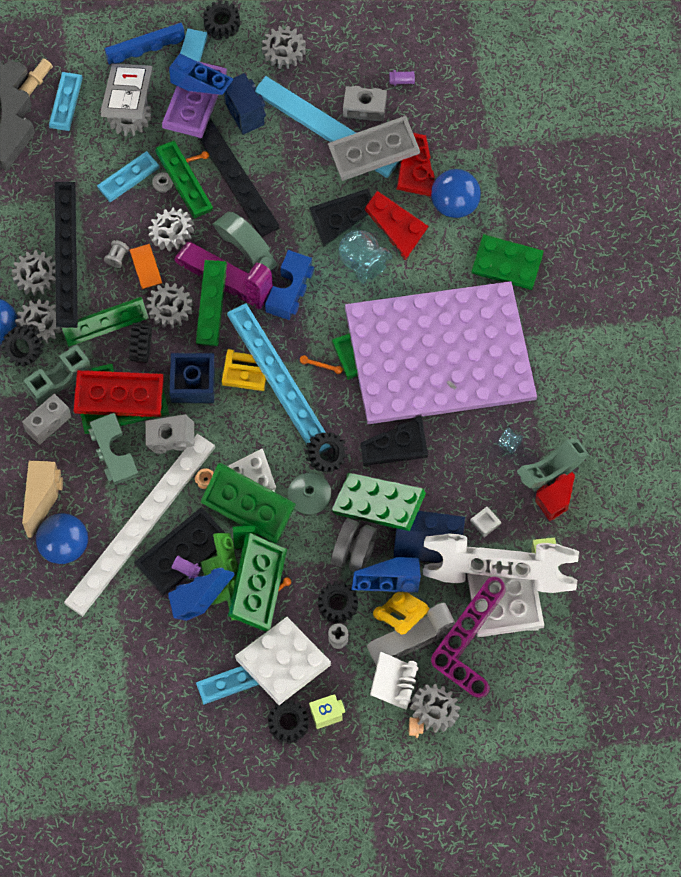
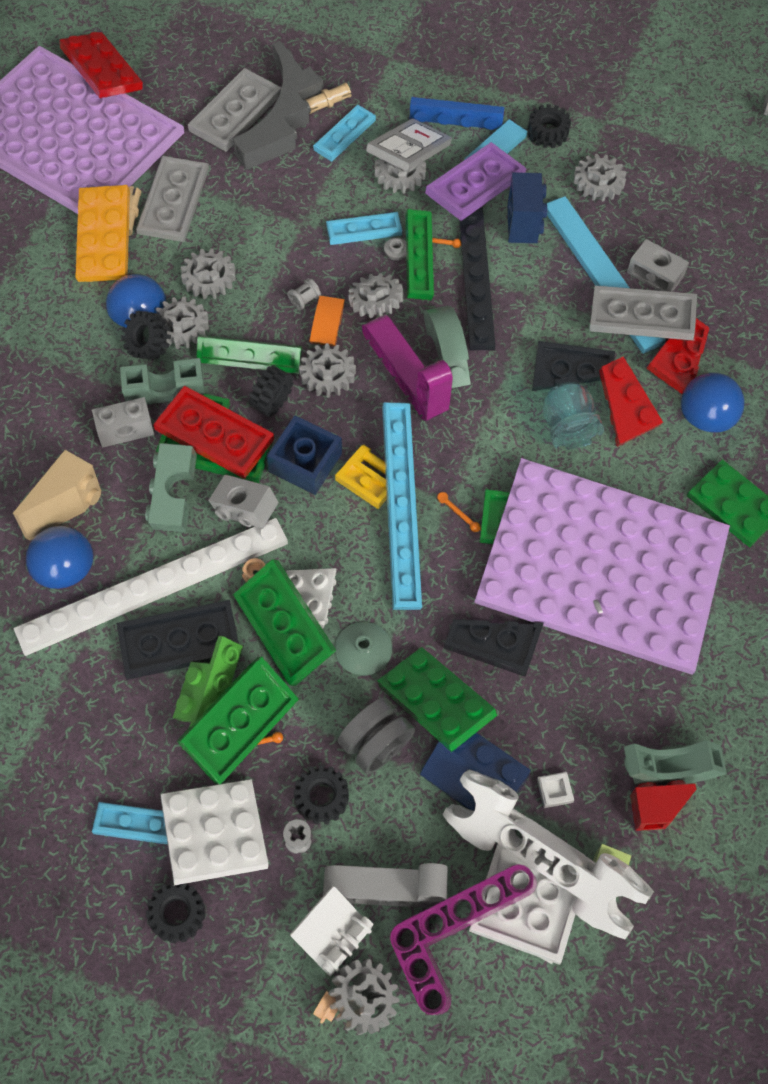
camera: 25 degrees right, 5 degrees down
(65, 255) = (247, 270): black plate -> none
(186, 567) = (172, 665): medium lavender pin -> none
(196, 597) = (158, 699): blue slope -> none
(197, 77) = (488, 155): blue slope -> none
(211, 303) = (373, 387): green plate -> none
(239, 535) = (253, 650): green plate -> none
(283, 301) = (456, 424): blue arch -> none
(326, 711) = (228, 924): yellowish green brick -> none
(338, 452) = (424, 614): black tyre -> none
(392, 575) = (398, 794): blue slope -> none
(401, 77) = (712, 261): medium lavender pin -> none
(405, 606) = (399, 844): yellow plate -> none
(510, 440) = (635, 706): clear light blue wheel -> none

